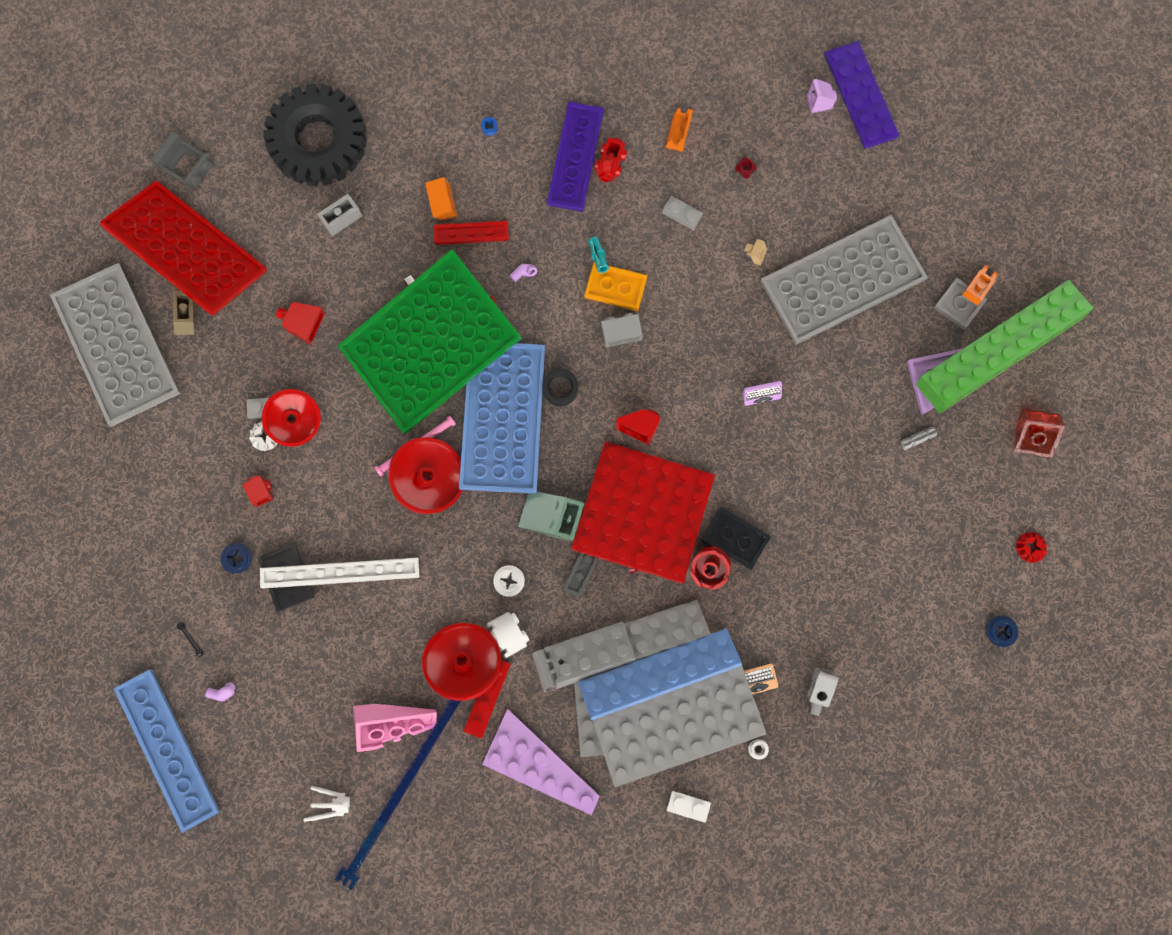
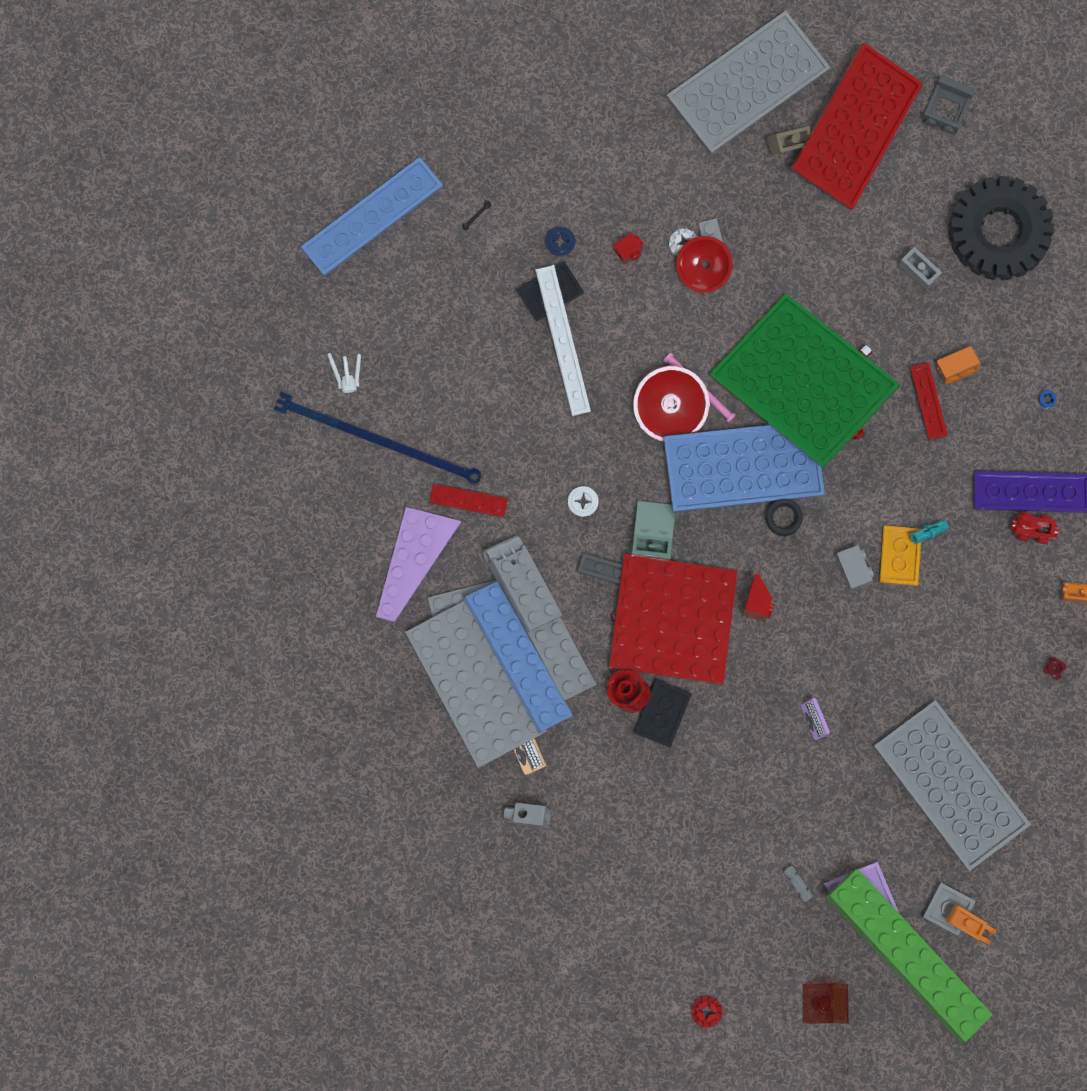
camera: 80 degrees right, 0 degrees up
(222, 694) = (432, 258): lavender arm -> none
(301, 320) = (805, 253): red torso -> none
(385, 722) = (428, 407): bright pink wedge -> none
(461, 661) = (498, 469): red dish -> none
(508, 634) = (531, 507): white brick -> none
(523, 270) = (899, 461): lavender arm -> none
(682, 213) = (992, 610): light grey plate -> none
(688, 806) = (398, 707): white plate -> none
(756, 251) = (964, 692): tan tile -> none
(764, 746) = (458, 760): white plate -> none
(1011, 631) = (615, 980): dark blue gear -> none

